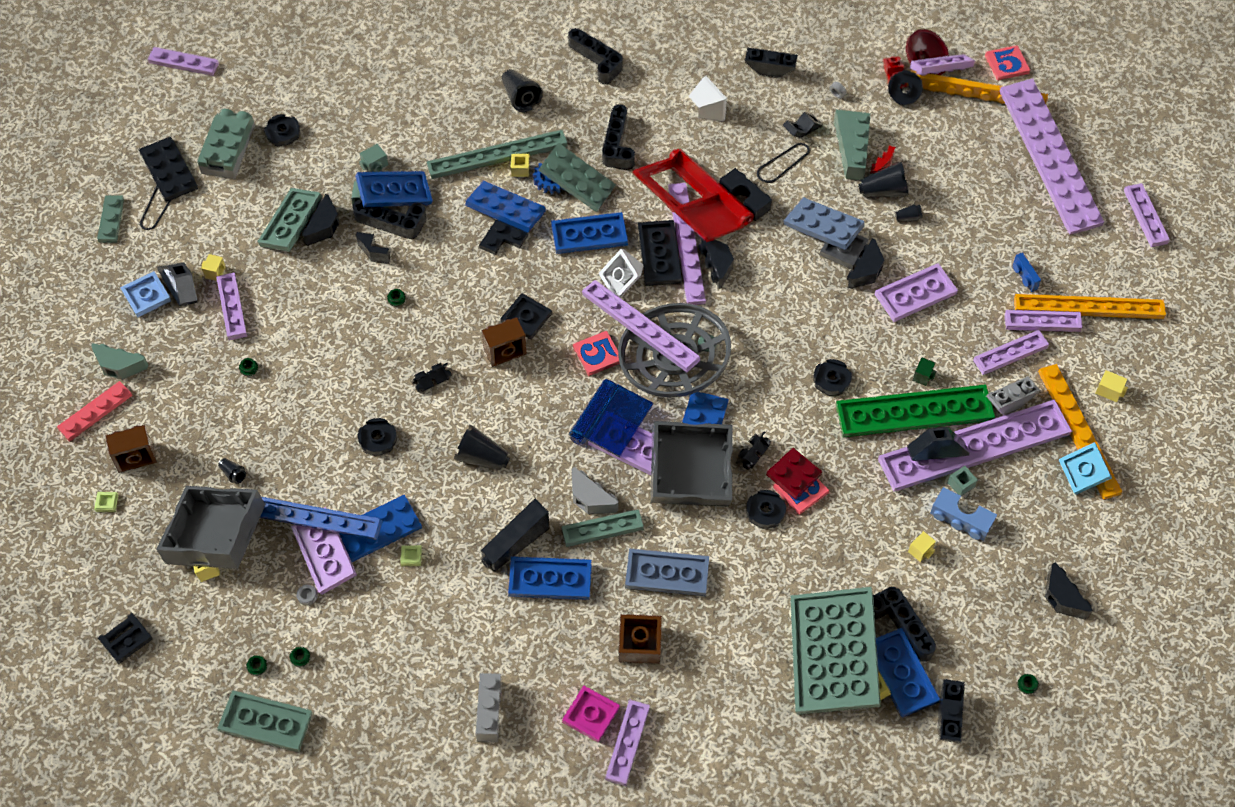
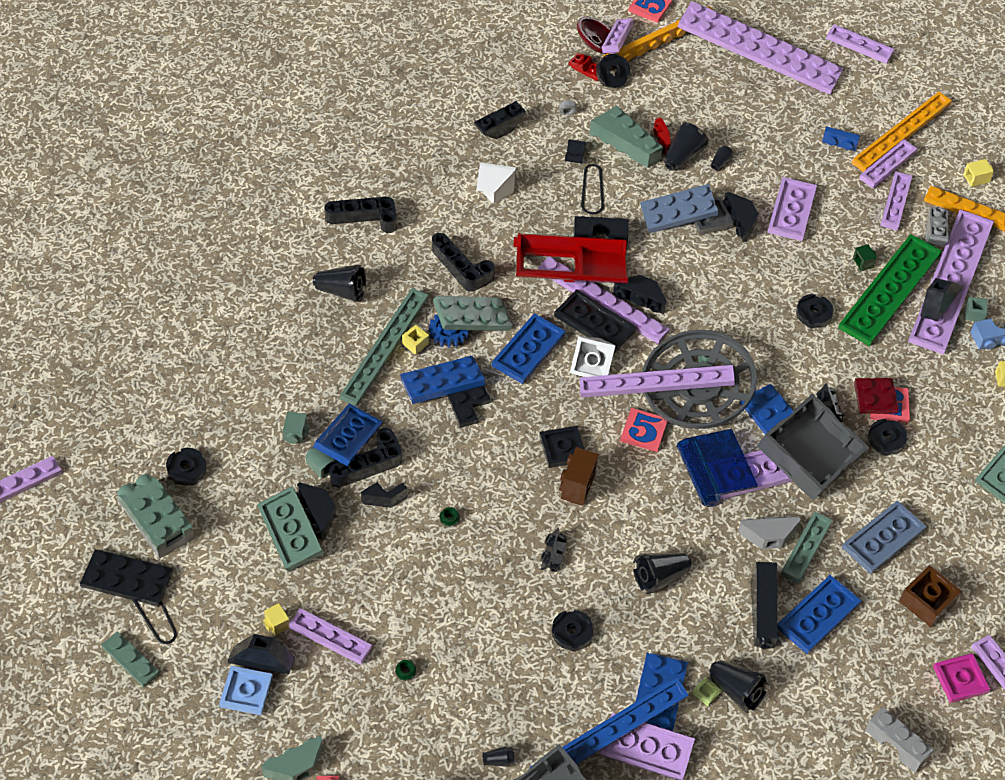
camera: 50 degrees left, 5 degrees down
(431, 571) = (740, 684): none -> black cone

